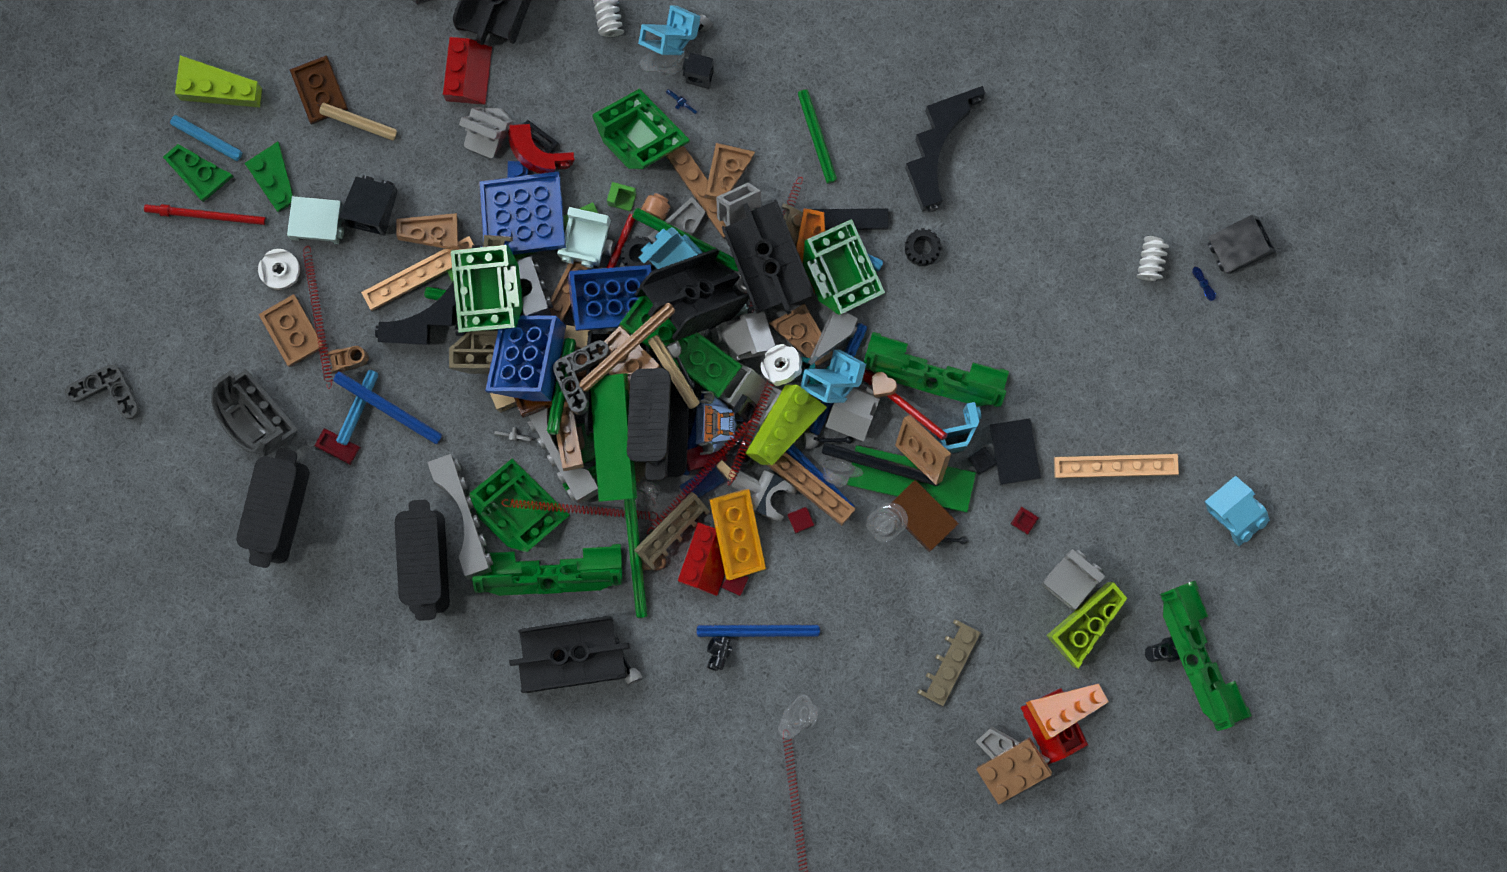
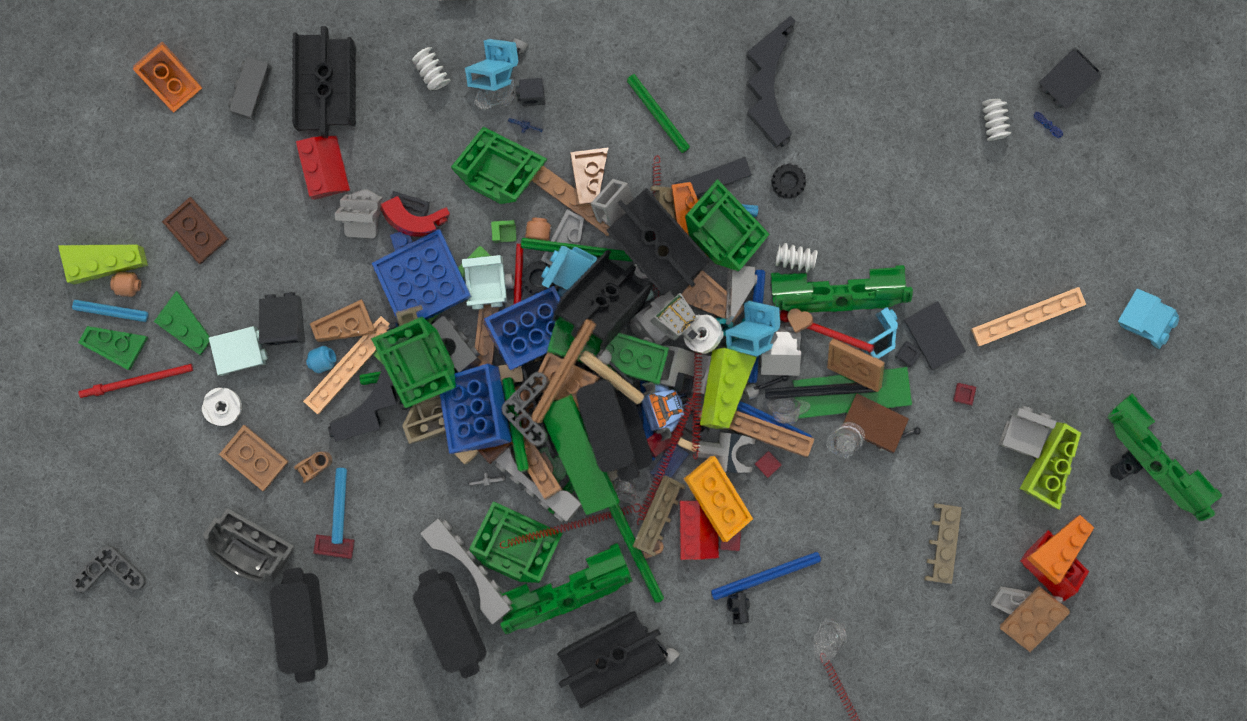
camera: 15 degrees left, 5 degrees up
(231, 117) = (125, 284): none -> nougat head
(331, 380) = (301, 490): red piece -> none
(358, 121) = (241, 247): tan axle -> none
(387, 407) = (366, 497): blue axle -> none
(394, 257) = (321, 359): none -> dark azure head
(759, 339) = (676, 319): none -> light grey torso
(902, 324) = (796, 257): none -> white piece

